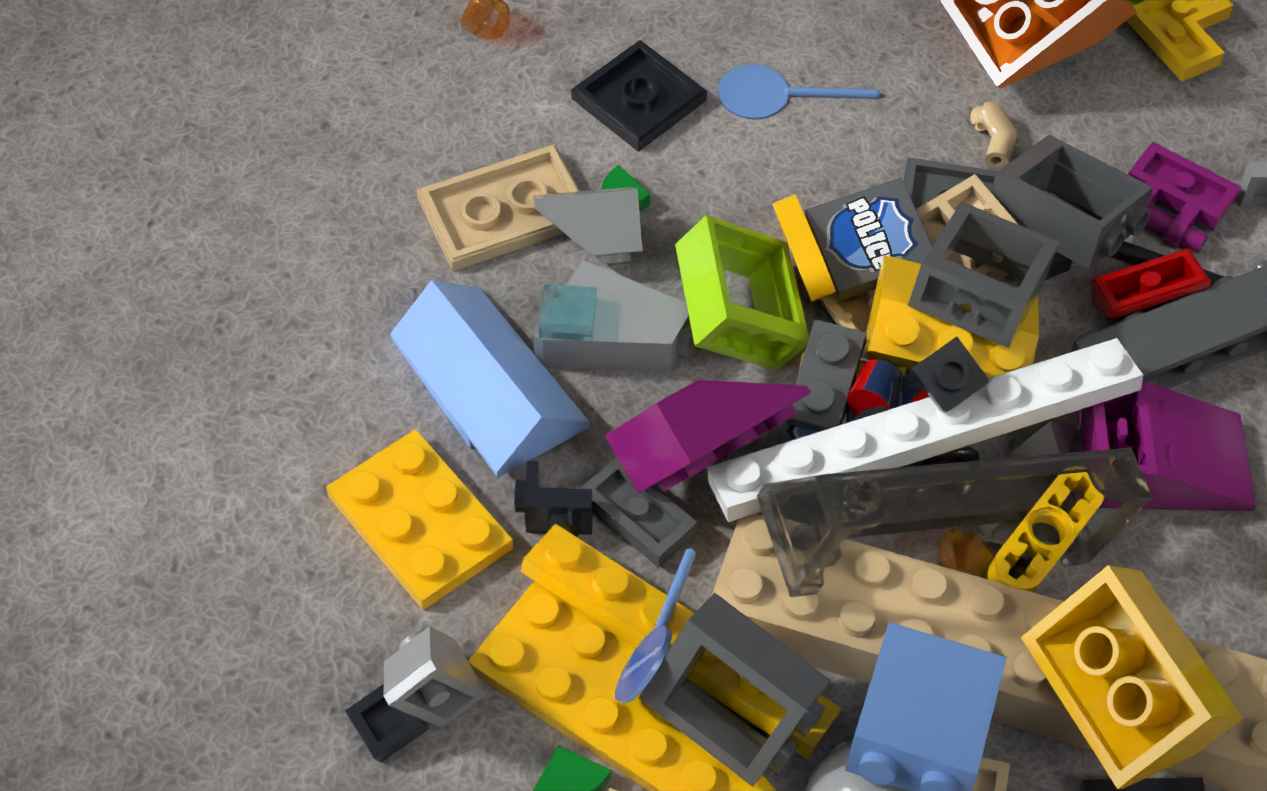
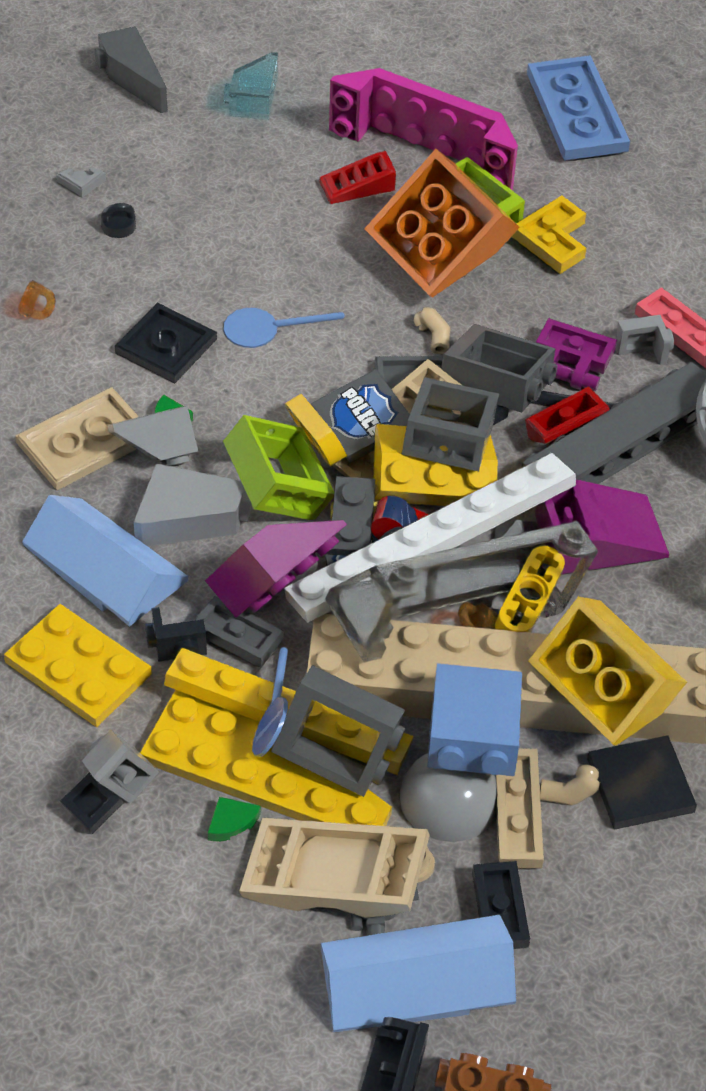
camera: 15 degrees left, 5 degrees down
(567, 312) = (156, 501): clear light blue tile -> none
(947, 376) = (440, 495): black bracket -> none

